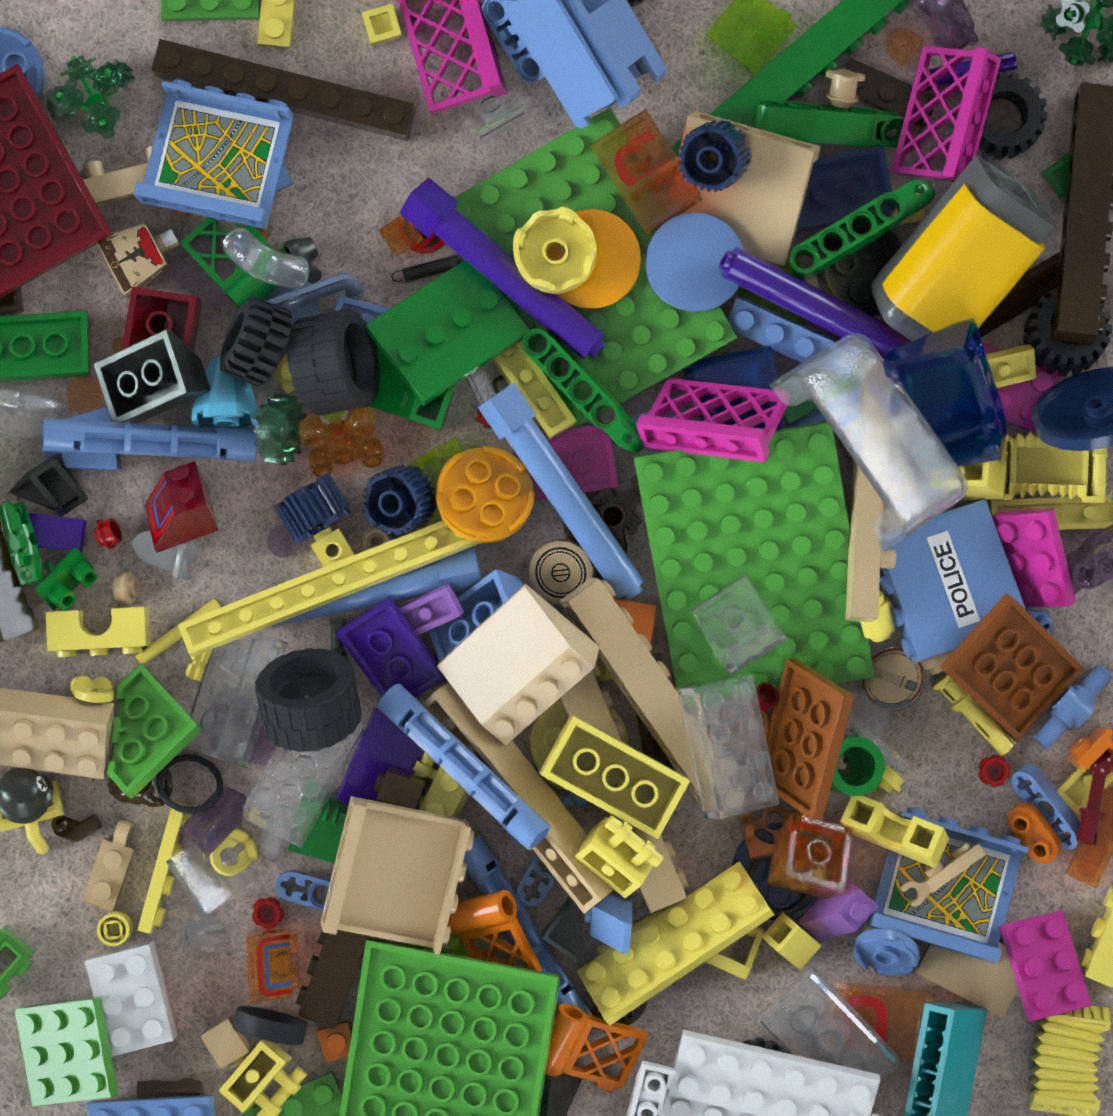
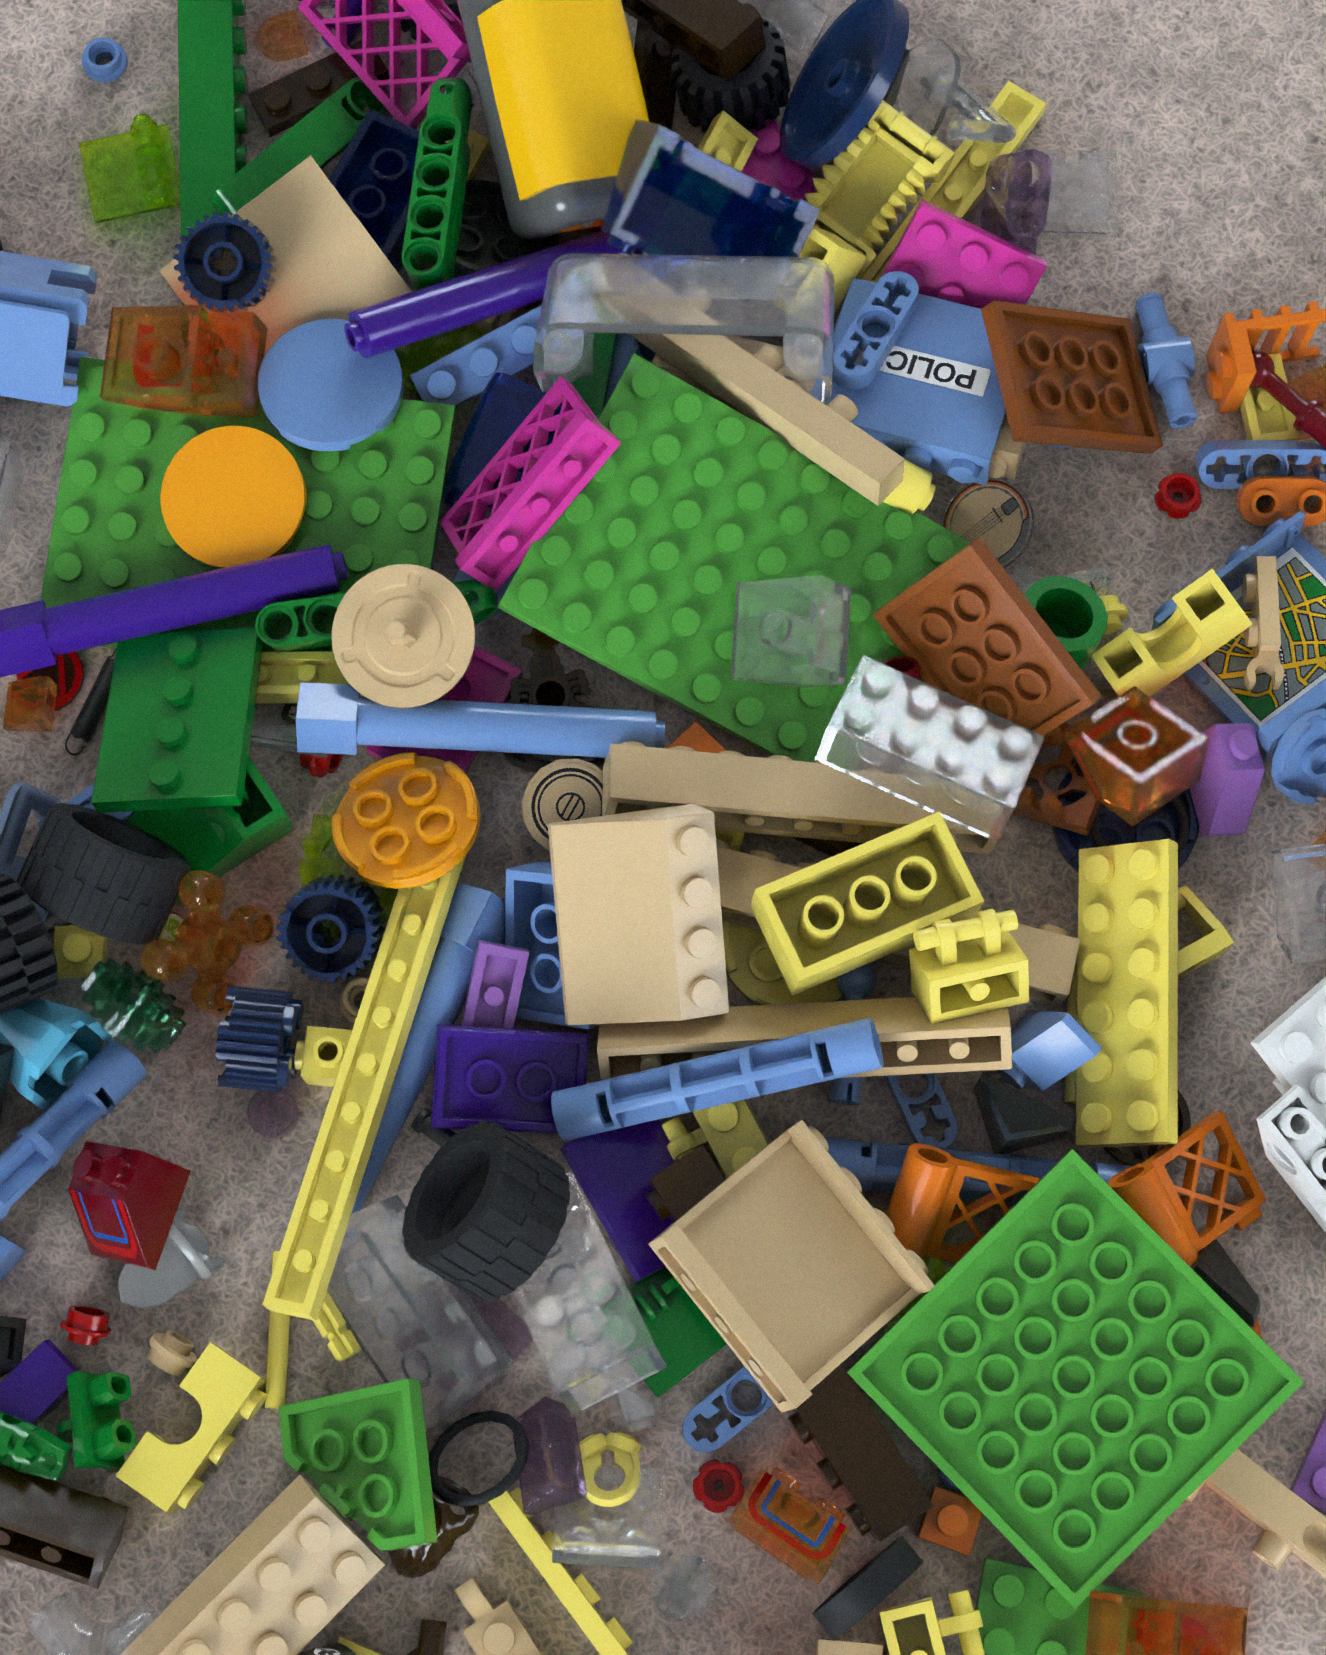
camera: 50 degrees left, 15 degrees down
(95, 691) = (266, 1487): light yellow piece -> none
(551, 228) = (170, 495): light yellow plate -> none
(577, 420) = (403, 636): none -> tan piece
(791, 941) = (1222, 857): light yellow brick -> none
(843, 87) = (272, 112): tan brick -> none
(978, 526) = (875, 311): none -> medium blue beam
(979, 718) = (1071, 470): light yellow pin -> none

